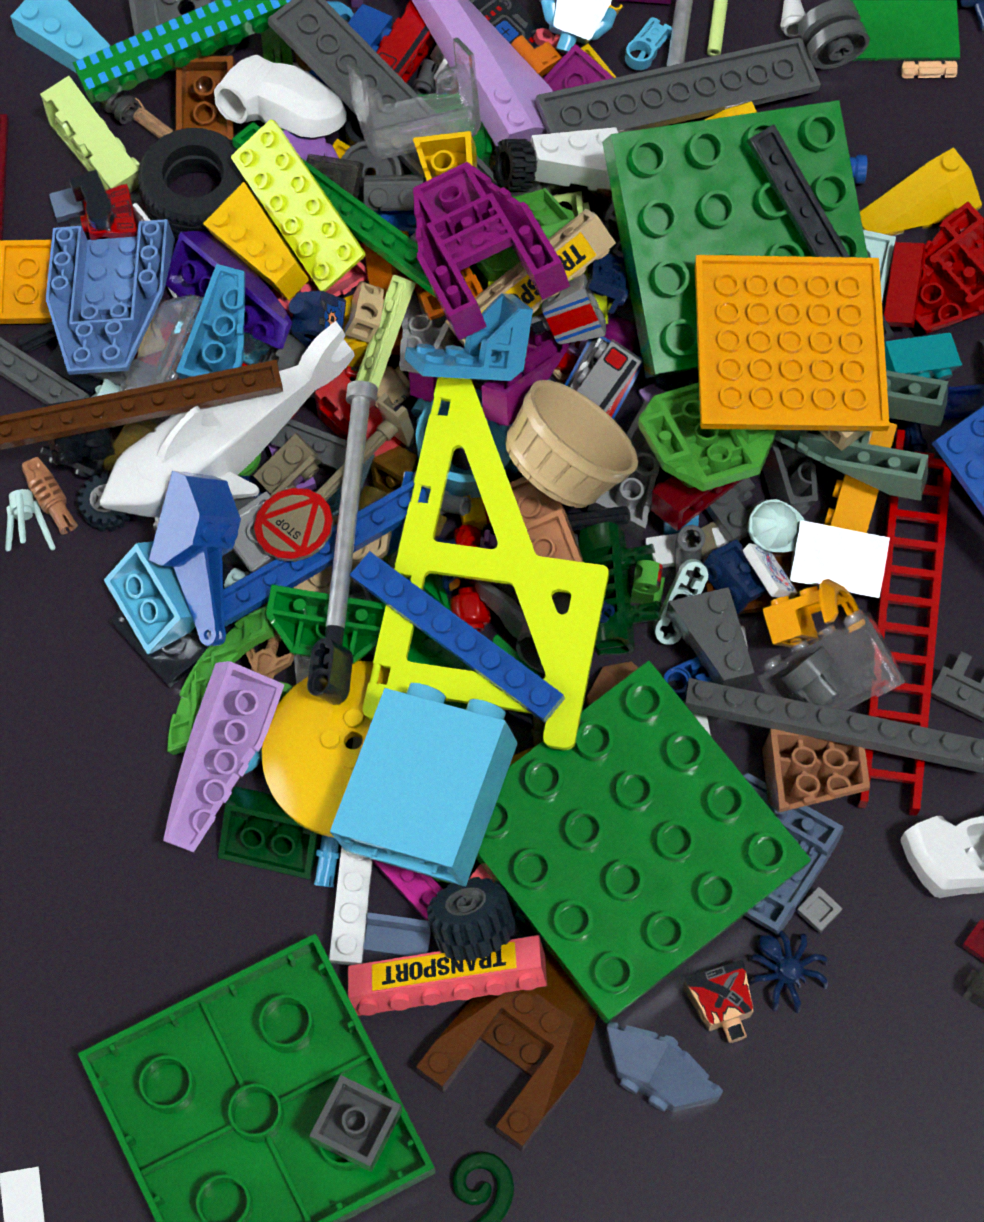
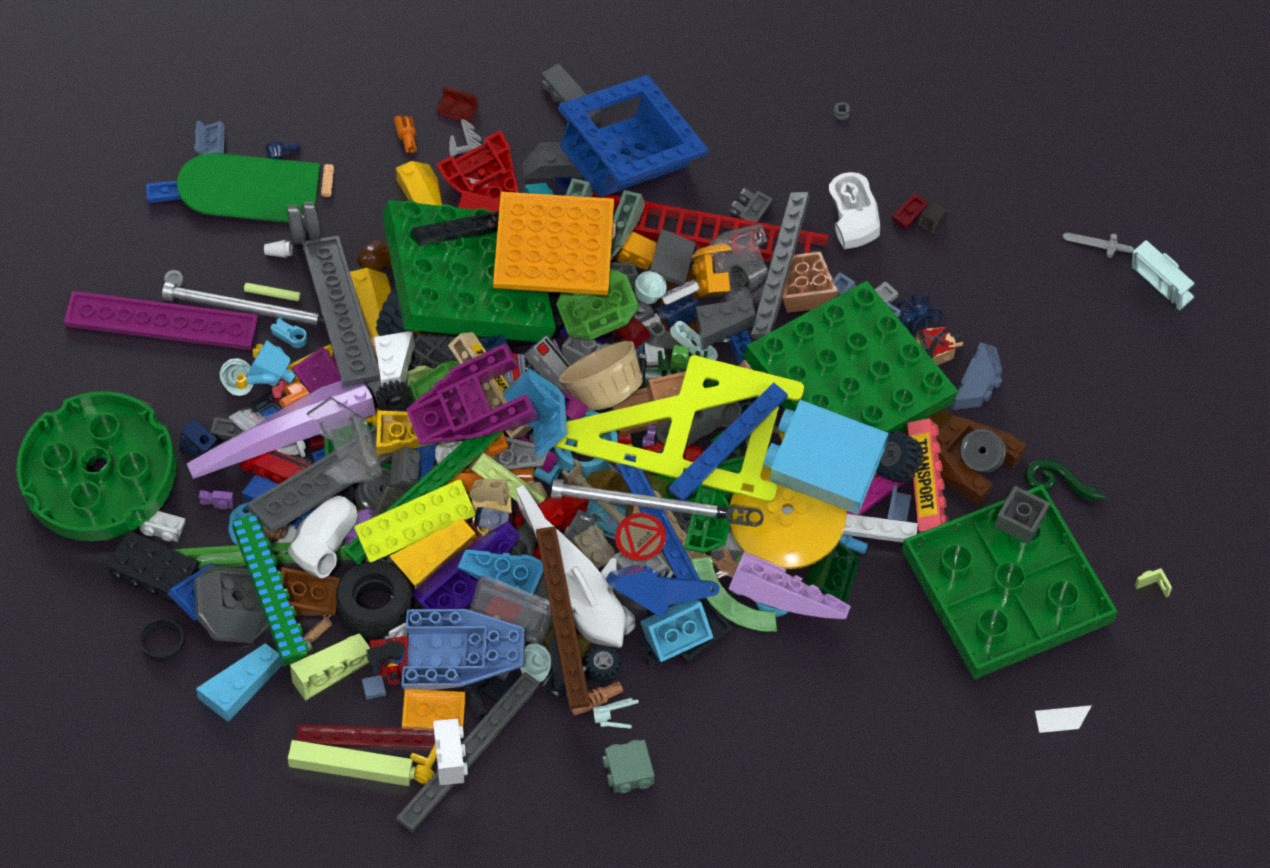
camera: 90 degrees left, 10 degrees down
(498, 1067) = (994, 454): none -> dark grey wheel

